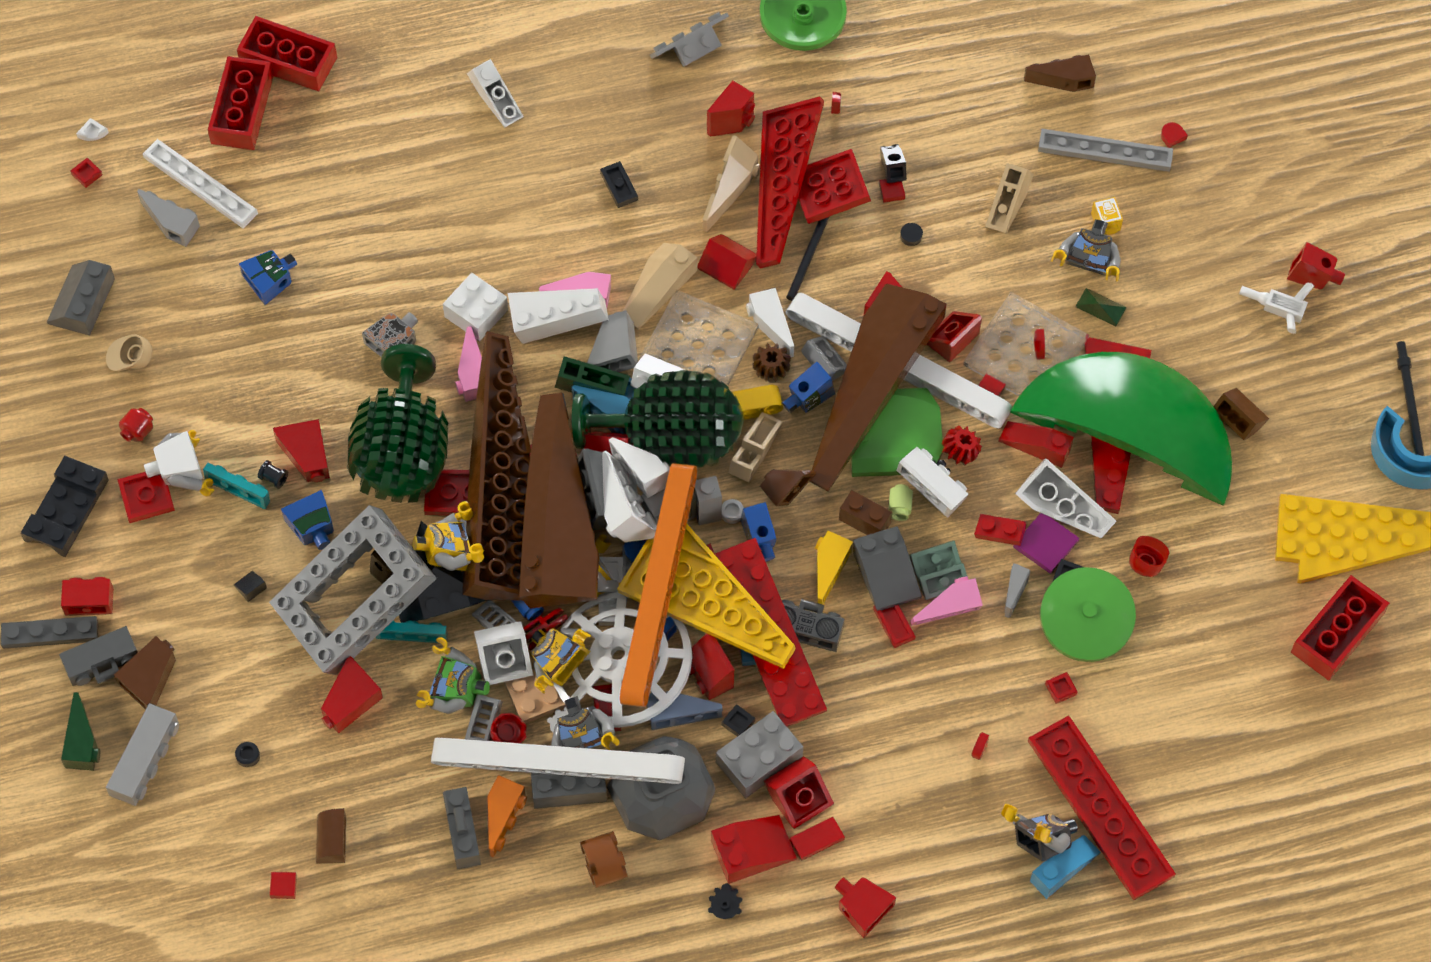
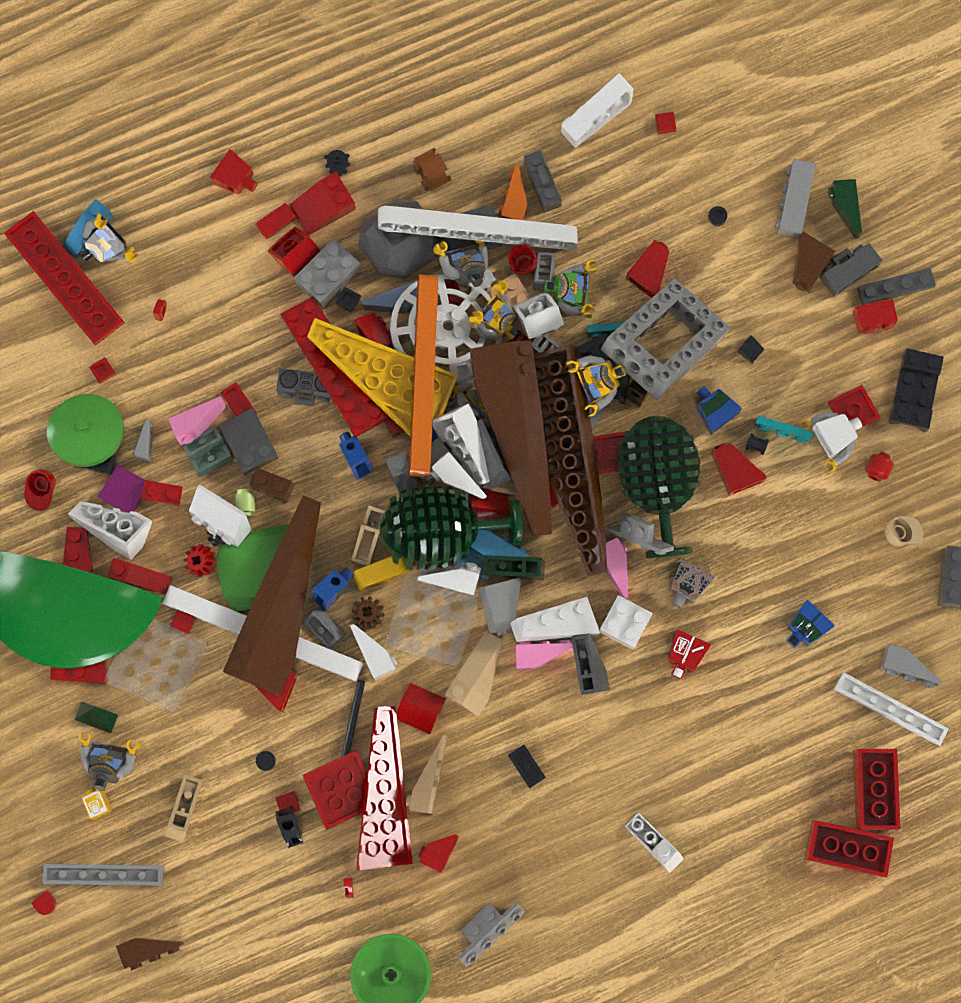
camera: 175 degrees right, 15 degrees up
(331, 836) = (638, 161): reddish brown brick -> none
(370, 906) = (598, 111): none -> white wedge
(413, 267) = (686, 653): none -> red torso
(437, 377) = (640, 532): none -> light grey bracket
(526, 260) = (589, 665): none -> dark grey slope
(732, 511) = (380, 476): white tile -> none
(785, 484) = (339, 499): reddish brown slope -> none
(831, 558) = (294, 443): yellow slope -> none
(955, 334) = (212, 667): red slope -> none
(1039, 339) = (143, 659): red tile -> none

